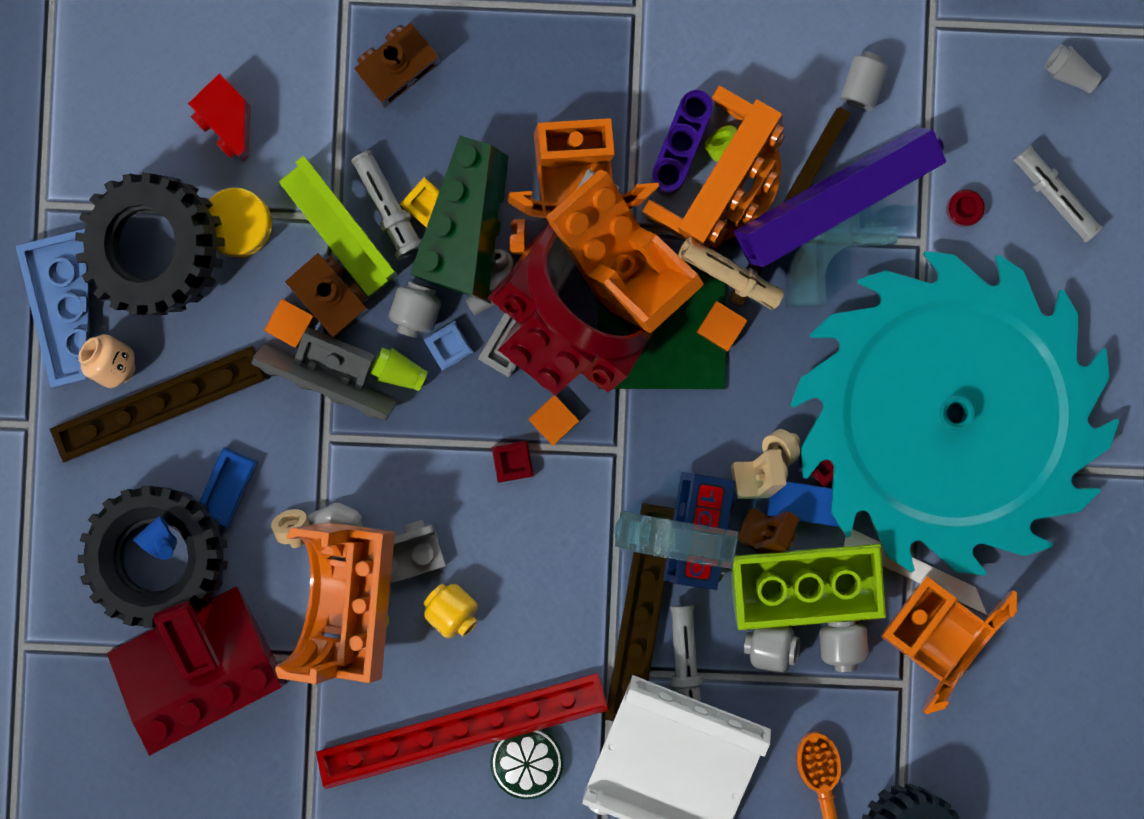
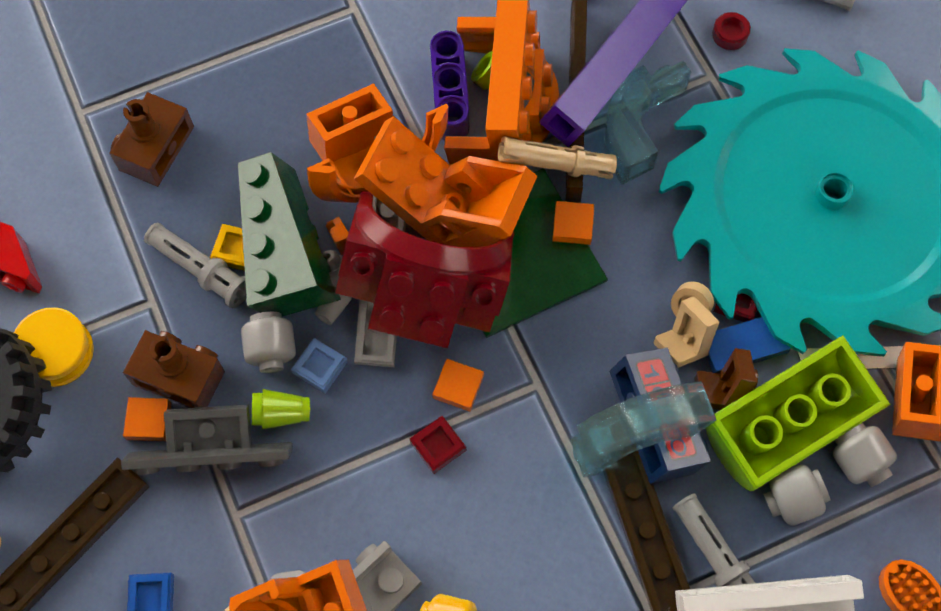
camera: 25 degrees left, 20 degrees down
(337, 227) = (158, 303): lime fence -> none

